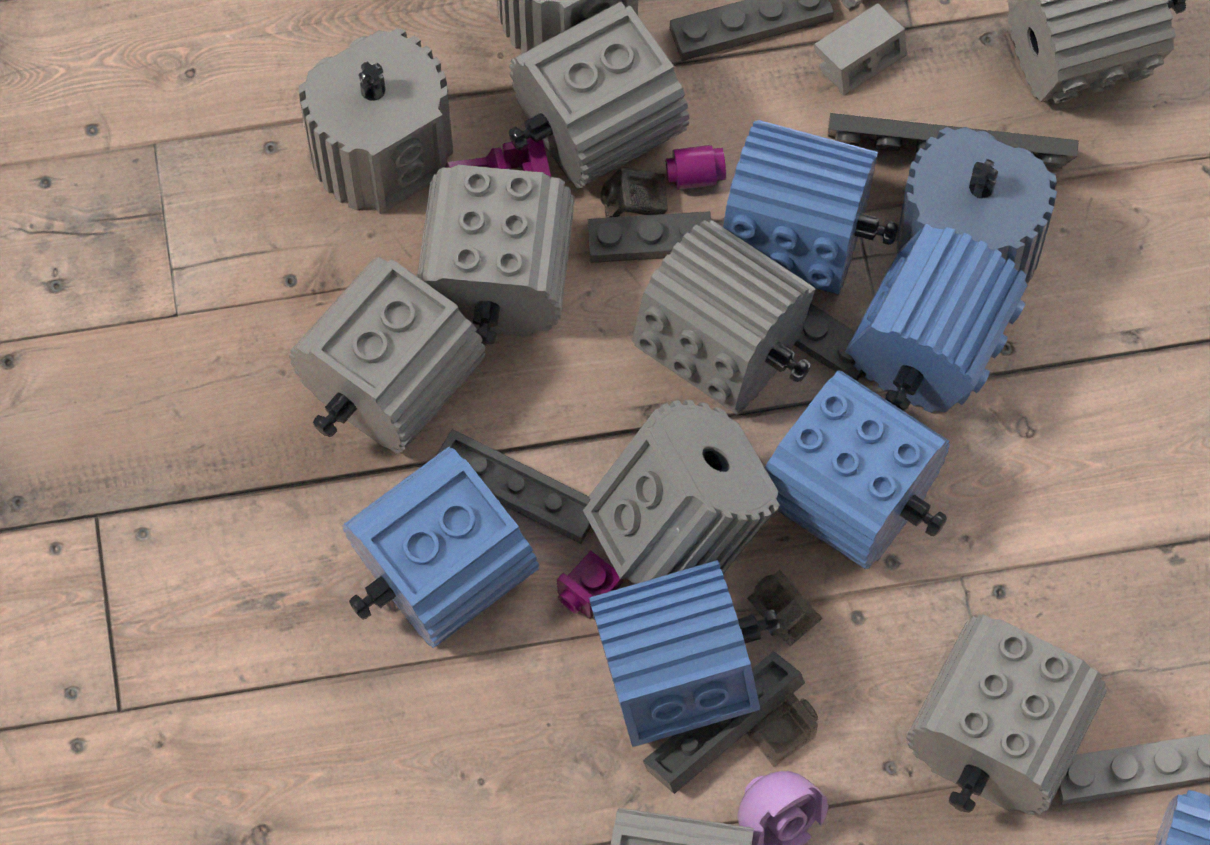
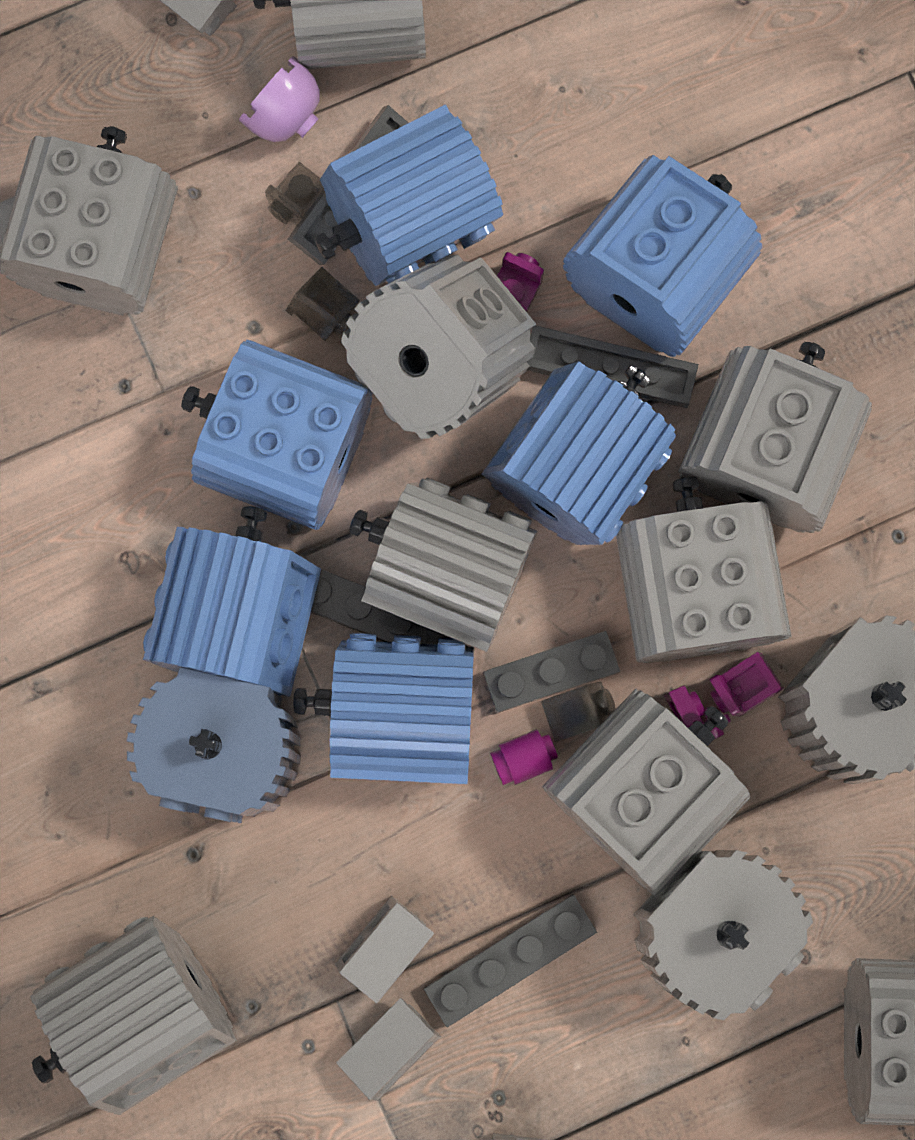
camera: 165 degrees right, 15 degrees up
(576, 379) = (582, 453): none -> medium blue piece
(892, 133) = (261, 847): dark grey plate -> none

